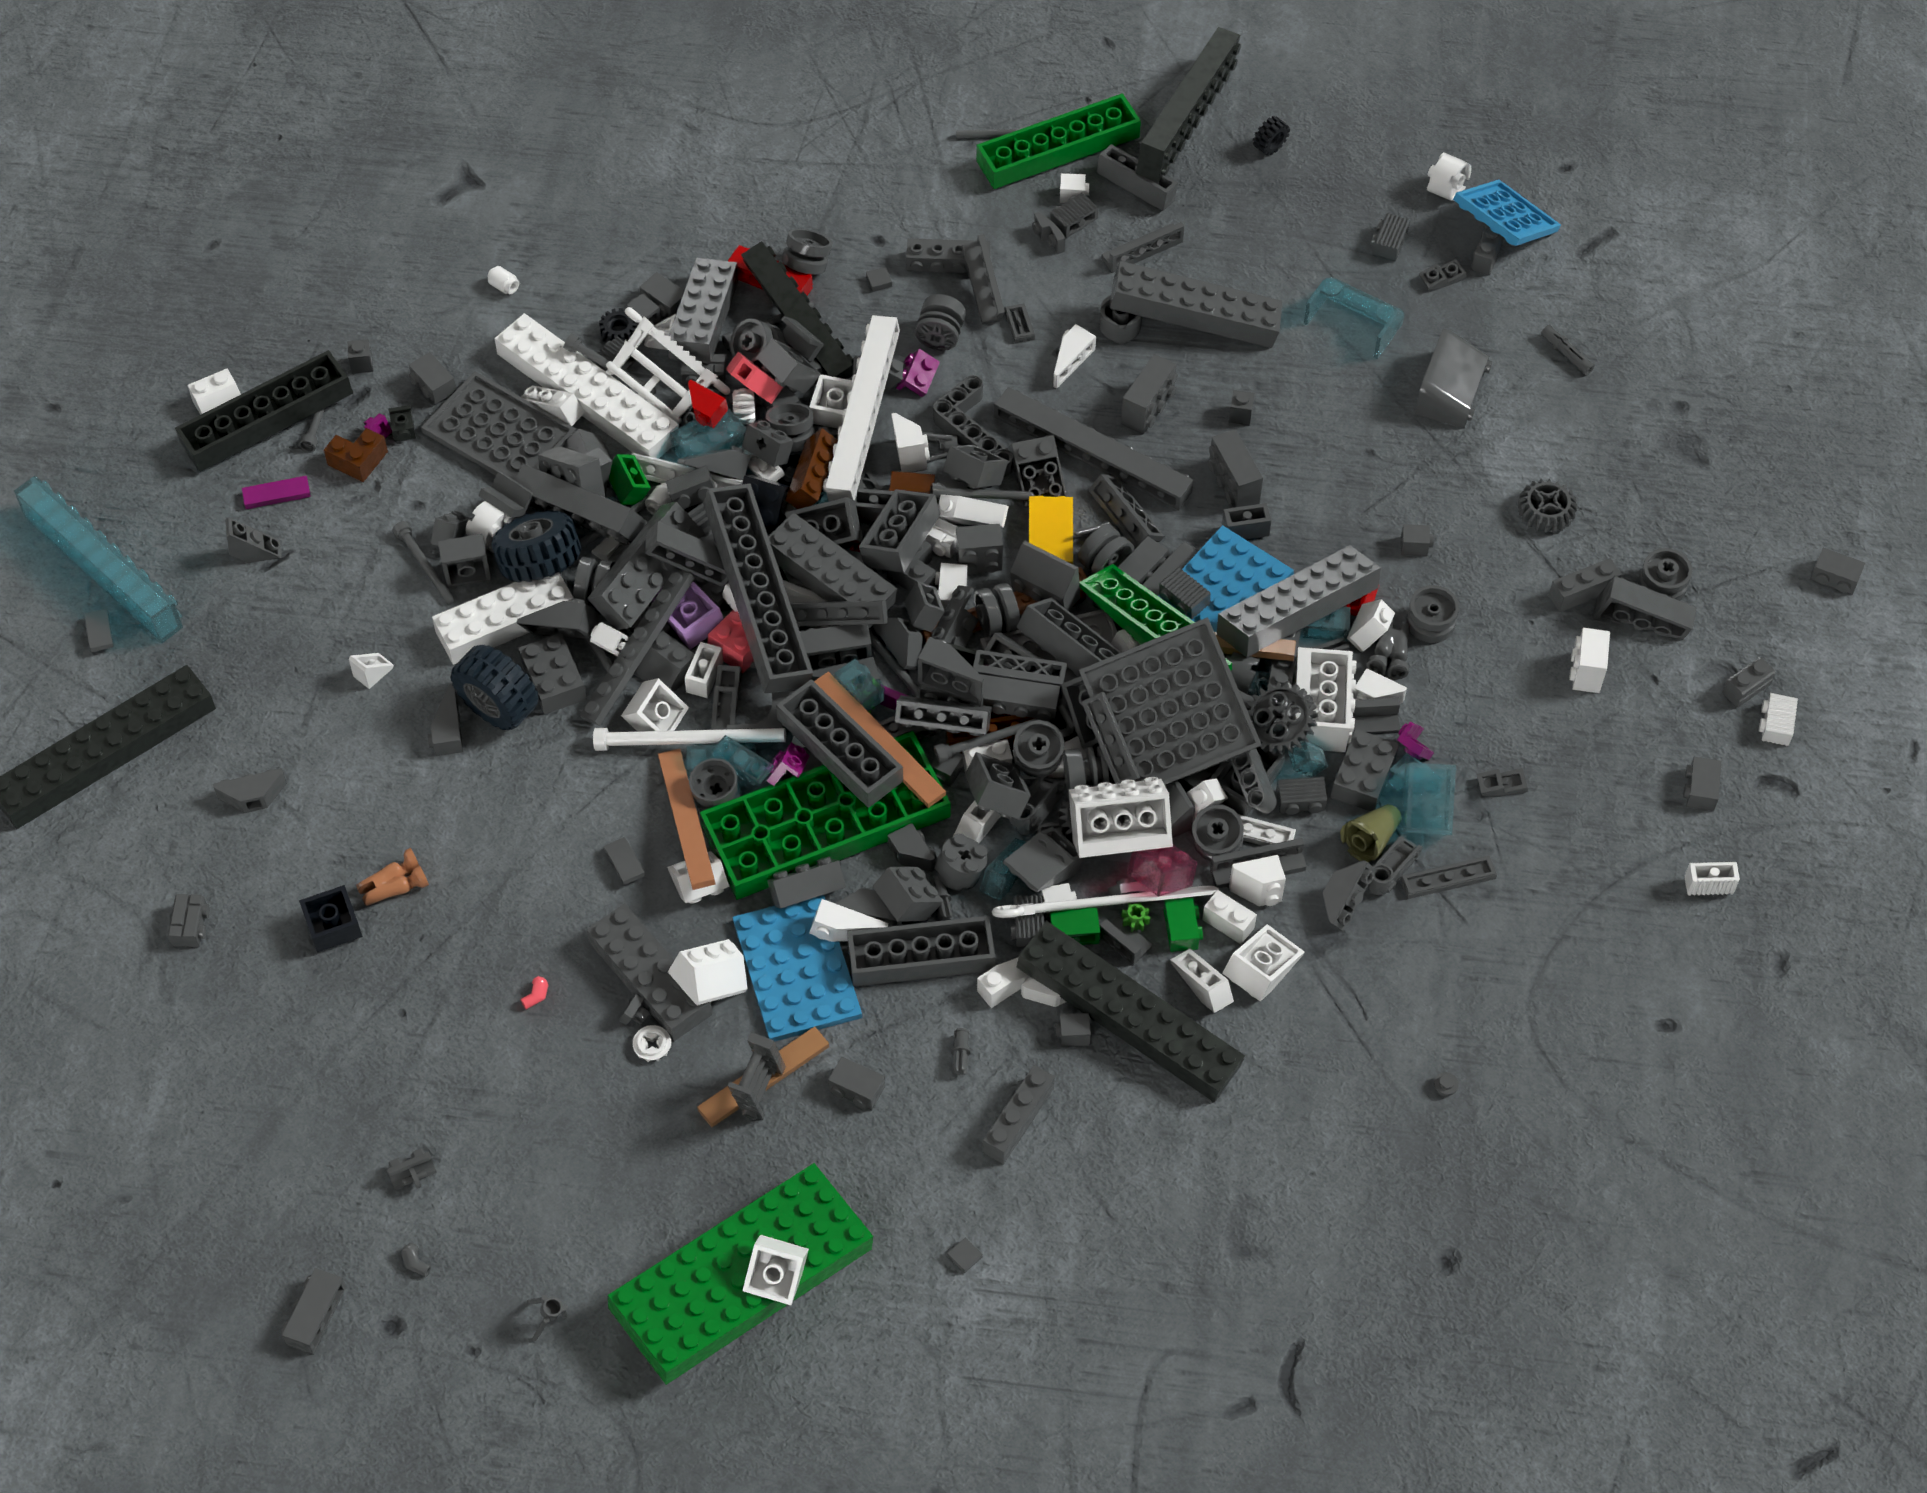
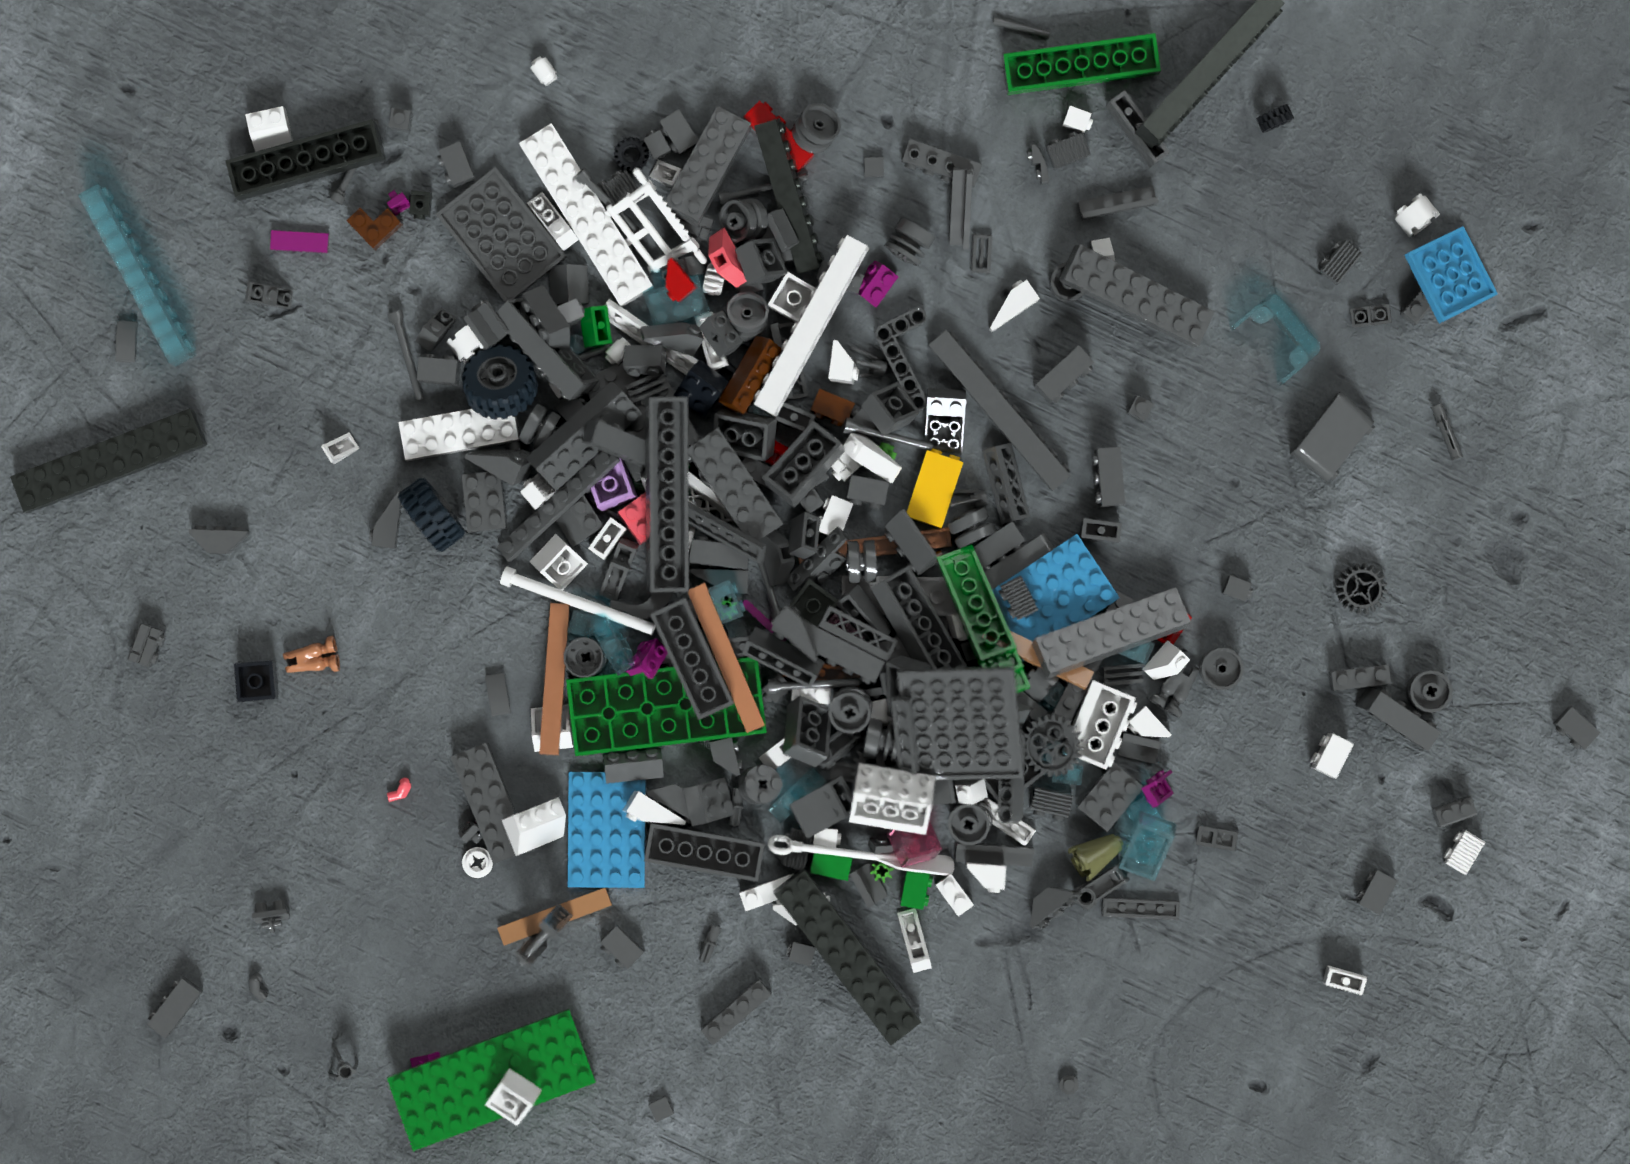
camera: 25 degrees right, 30 degrees up
(1262, 962) = (967, 940): white slope -> none

